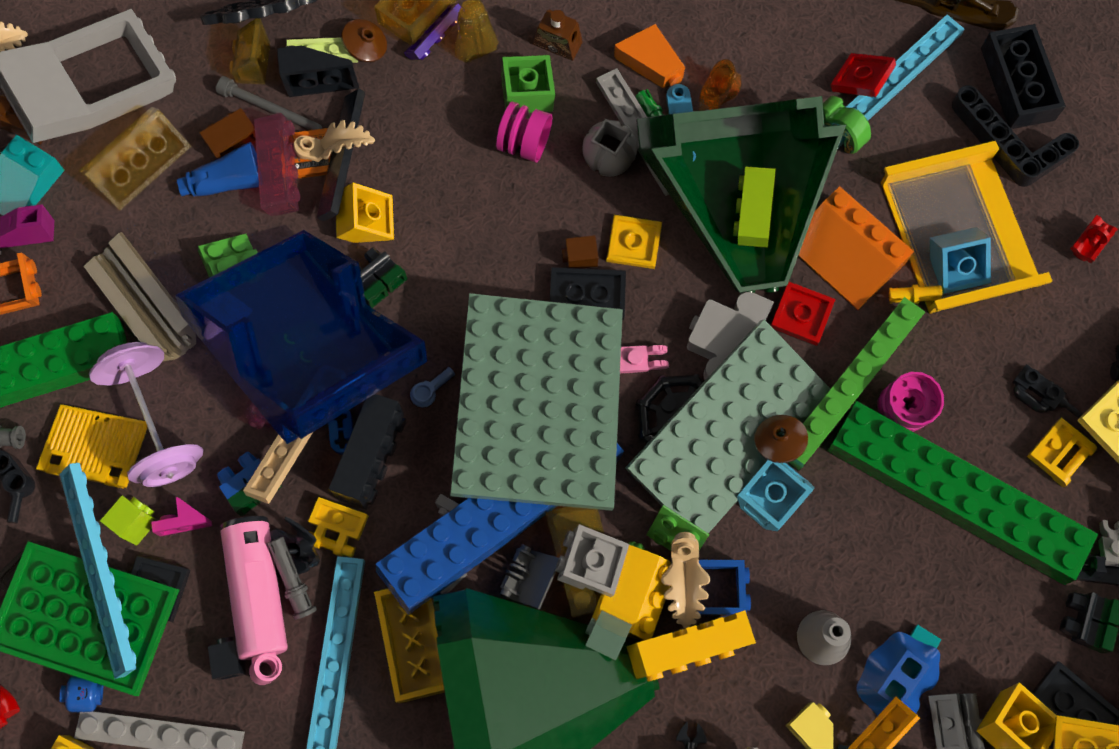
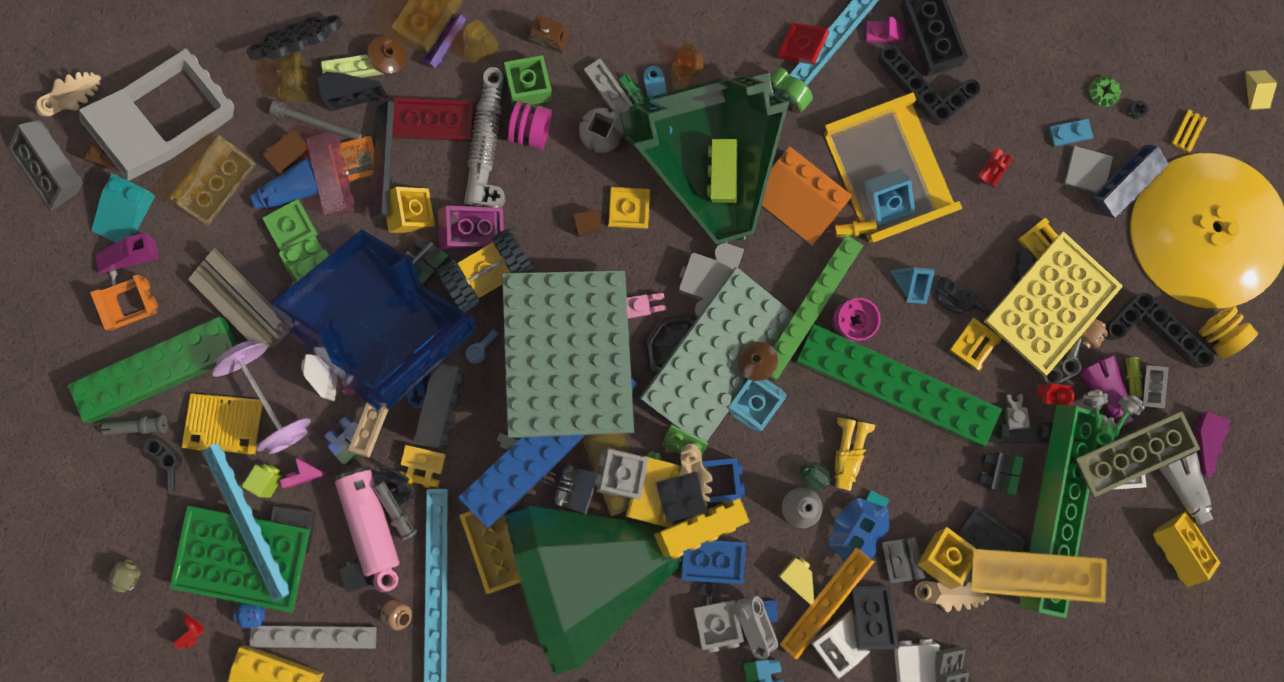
camera: 10 degrees left, 10 degrees up
(218, 217) = (290, 225): none -> bright green plate
(225, 397) = (320, 376): none -> white slope
(272, 717) = (396, 615): none -> medium nougat head
(332, 141) = (374, 151): tan plant -> none
(409, 116) = (433, 119): none -> dark red plate
(436, 243) = (468, 226): none -> magenta slope
(445, 291) = (484, 269): none -> plate
(460, 169) = (482, 144): none -> light grey piece
(589, 287) = (596, 253): black plate -> none
(607, 634) = (638, 528): sand green brick -> none
(651, 57) = (627, 44): orange slope -> none
(668, 599) = (681, 497): none -> black plate
(703, 696) = (715, 562): none -> blue plate
(802, 313) = (768, 254): red plate -> none
(844, 597) = (814, 476): none -> clear green head
(889, 582) = (847, 460): none -> yellow piece
(962, 74) = (885, 32): none -> dark pink slope
(987, 366) = (914, 283): none -> dark azure slope

